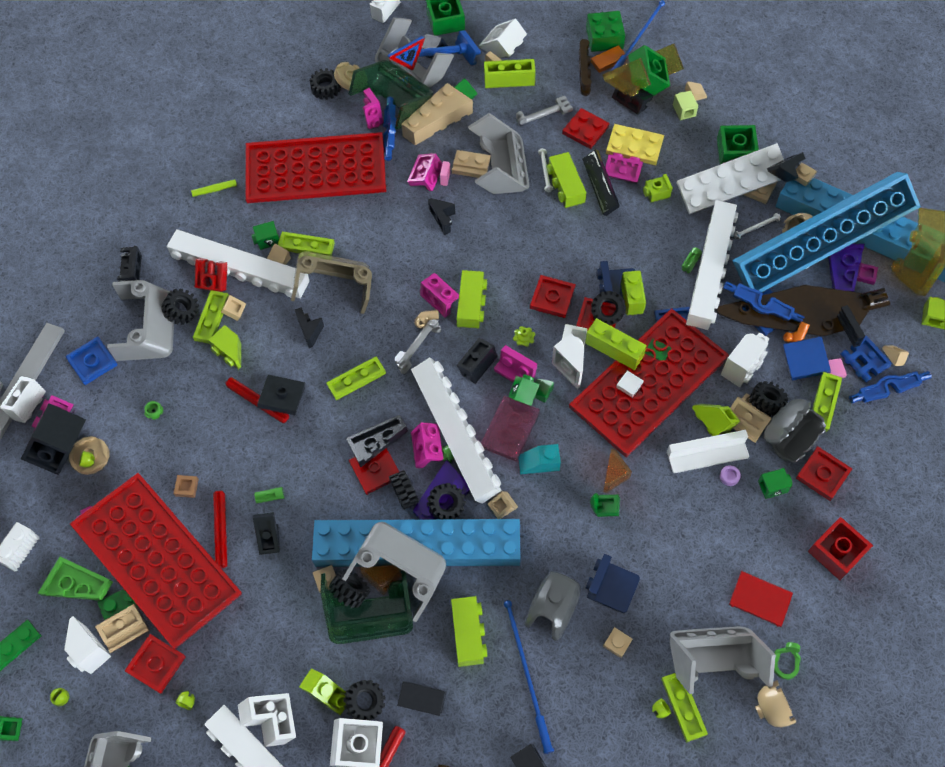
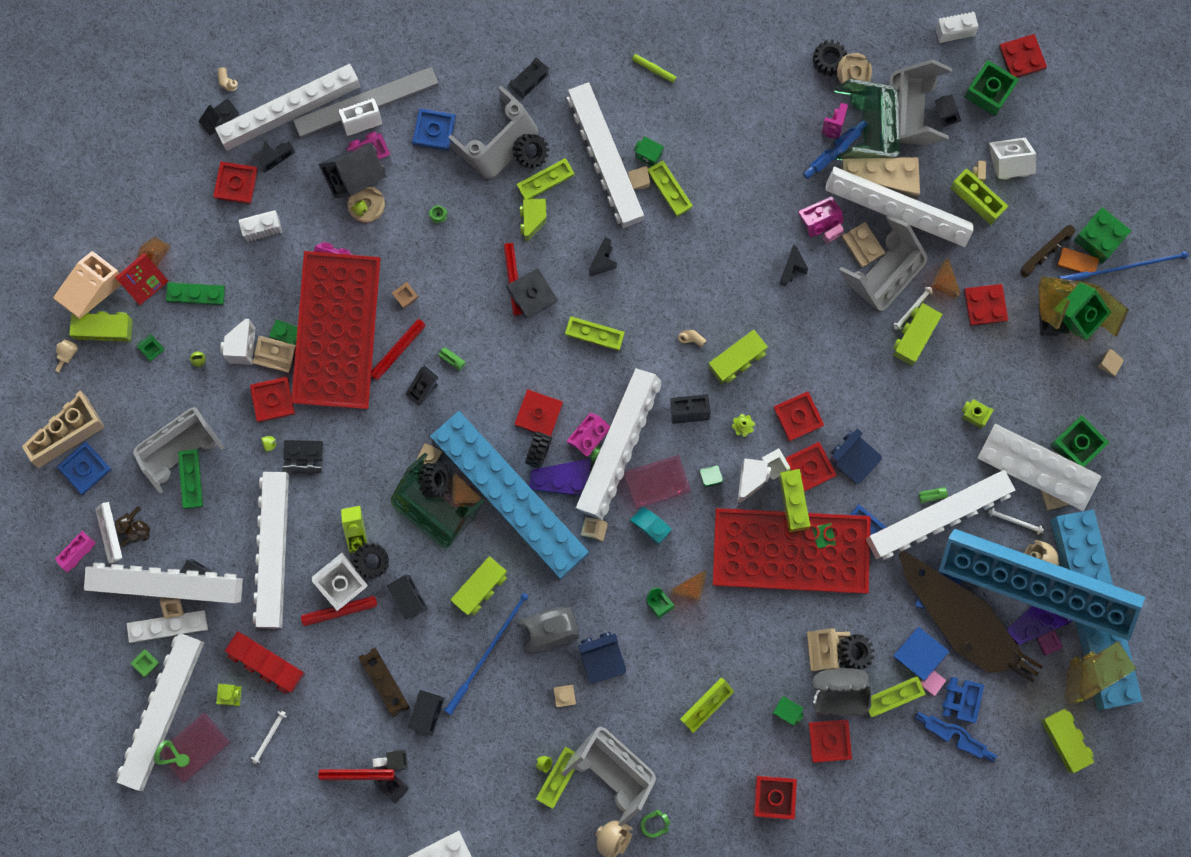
camera: 45 degrees right, 15 degrees up
(74, 581) = (275, 290): bright green wing -> none
(218, 279) = (573, 148): red brick -> none
(220, 677) = (305, 451): none -> black plate
(233, 307) = (567, 189): tan plate -> none
(273, 715) = (308, 510): white brick -> none
(315, 167) = (744, 128): red plate -> none
(334, 266) = (653, 210): dark tan windscreen -> none
(375, 439) = (560, 394): black wing -> none
(403, 358) = (639, 354): light grey hinge -> none
(405, 554) = (486, 497): light grey windscreen -> none
(409, 53) = (973, 136): blue piece -> none
(438, 294) = (719, 329): dark pink bracket -> none
(458, 501) = (551, 499): black tyre -> none
(461, 120) = (899, 206): none -> white brick
(465, 88) = (929, 175): green slope -> none
(514, 364) = (708, 443): dark pink bracket -> none
(524, 389) = (695, 465): brick -> none
(546, 135) = (945, 281): none -> clear orange slope
(561, 105) = (989, 265): light grey hinge -> none
(600, 182) = (940, 363): black tile -> none
(608, 296) = (809, 473): black tyre -> none
(623, 168) = (972, 369): dark pink bracket -> none
(629, 384) = (772, 539): white tile -> none
(633, 292) = (854, 476): lime brick -> none
(635, 143) = (1007, 358): light yellow plate -> none
(685, 105) = (1085, 366): yellowish green brick -> none
(708, 451) = (770, 642): white panel -> none
(716, 418) = (803, 625): lime slope -> none
(720, 538) = (707, 705): none -> lime plate
(730, 475) = (766, 673): lavender tile -> none
(745, 359) = (875, 608): white hinge -> none
(754, 298) = (941, 593): blue piece -> none
(761, 599) = (688, 770): red piece -> none
(786, 169) = (1080, 501): black slope -> none
(798, 335) = (936, 632): orange arm -> none
(805, 174) = (1091, 521): tan plate -> none
(851, 326) = (977, 667): black tile -> none
(896, 355) = (988, 720): tan slope -> none

